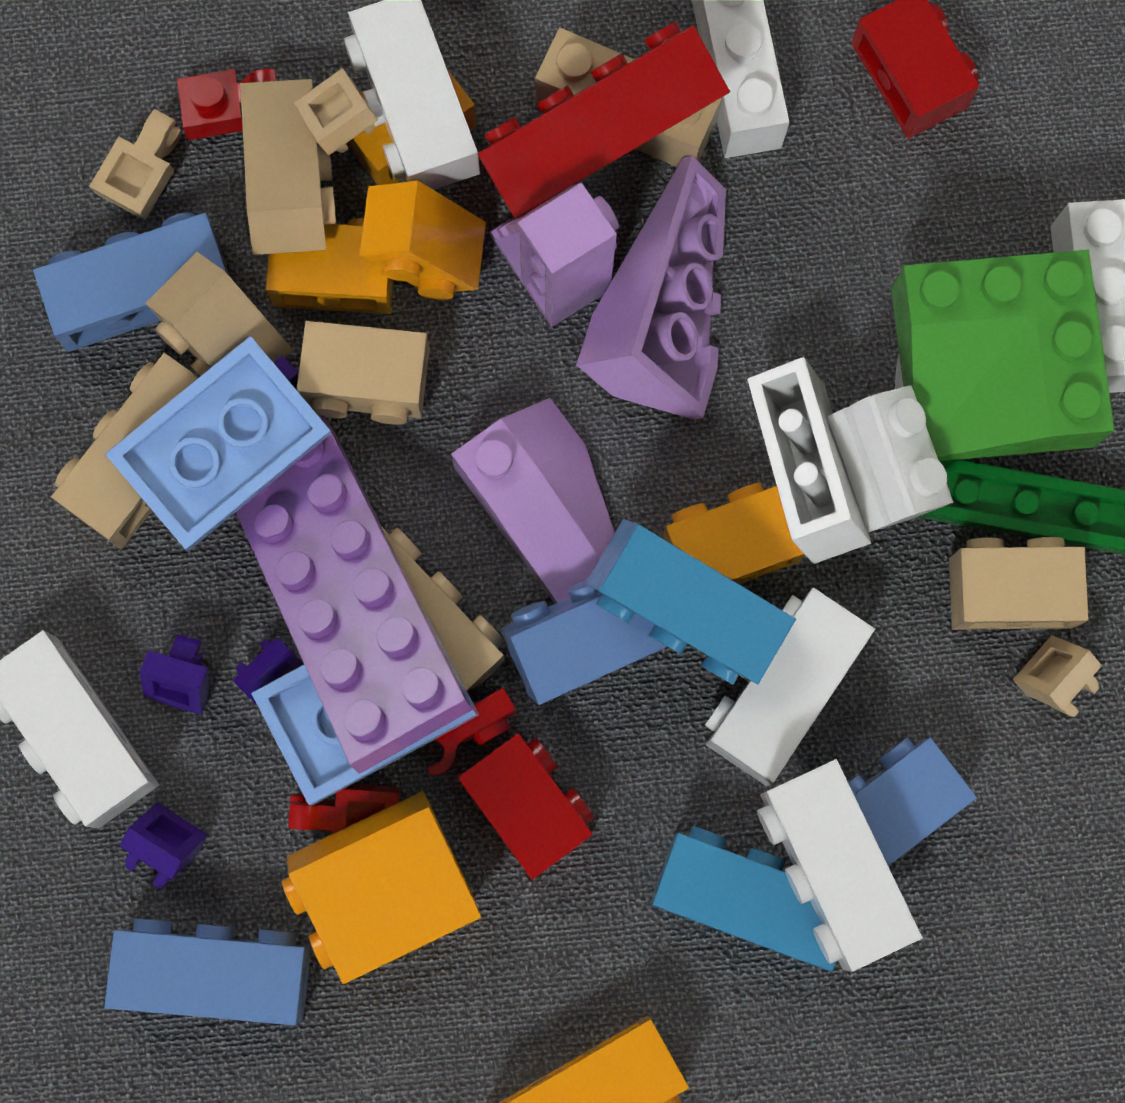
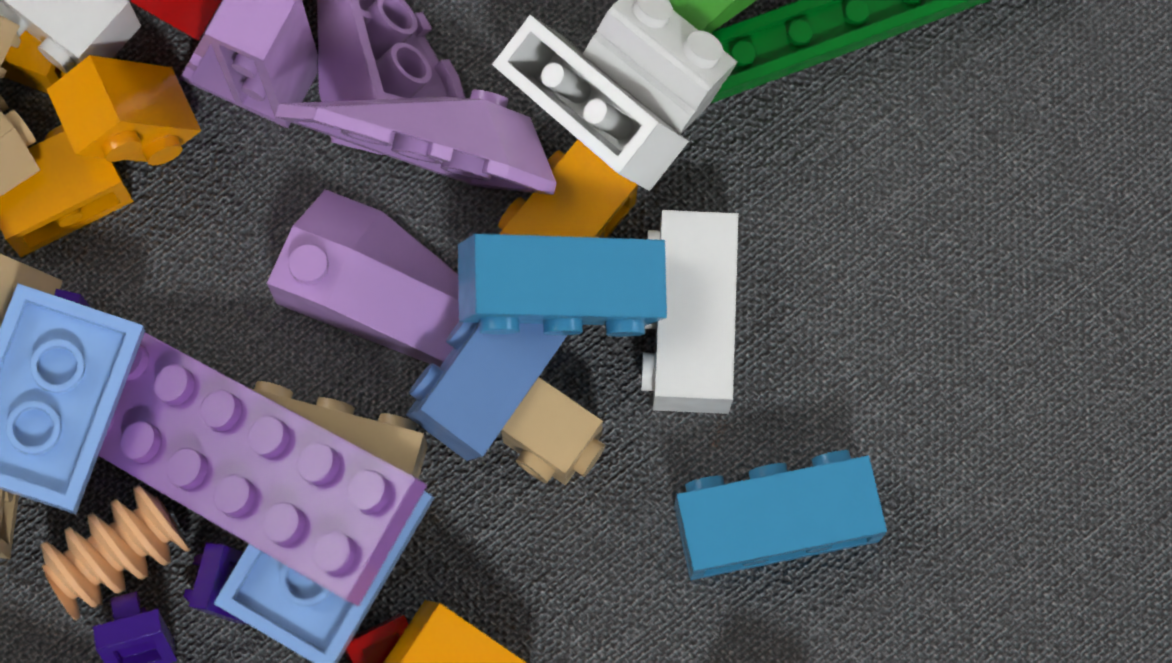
camera: 30 degrees left, 5 degrees down
(200, 596) = (110, 551): none -> light nougat piece
(363, 371) = (141, 259): tan brick -> none
(484, 729) = (444, 512): red plate -> none
(527, 805) = (527, 555): red brick -> none
(609, 719) = (553, 435): none -> tan brick
(671, 412) = (452, 136): none -> lavender wedge
(838, 868) = (834, 433): white brick -> none
(910, 796) = (854, 355): medium blue brick -> none
(1018, 585) = (837, 106): tan brick -> none
(1059, 674) = (920, 161): tan tile -> none

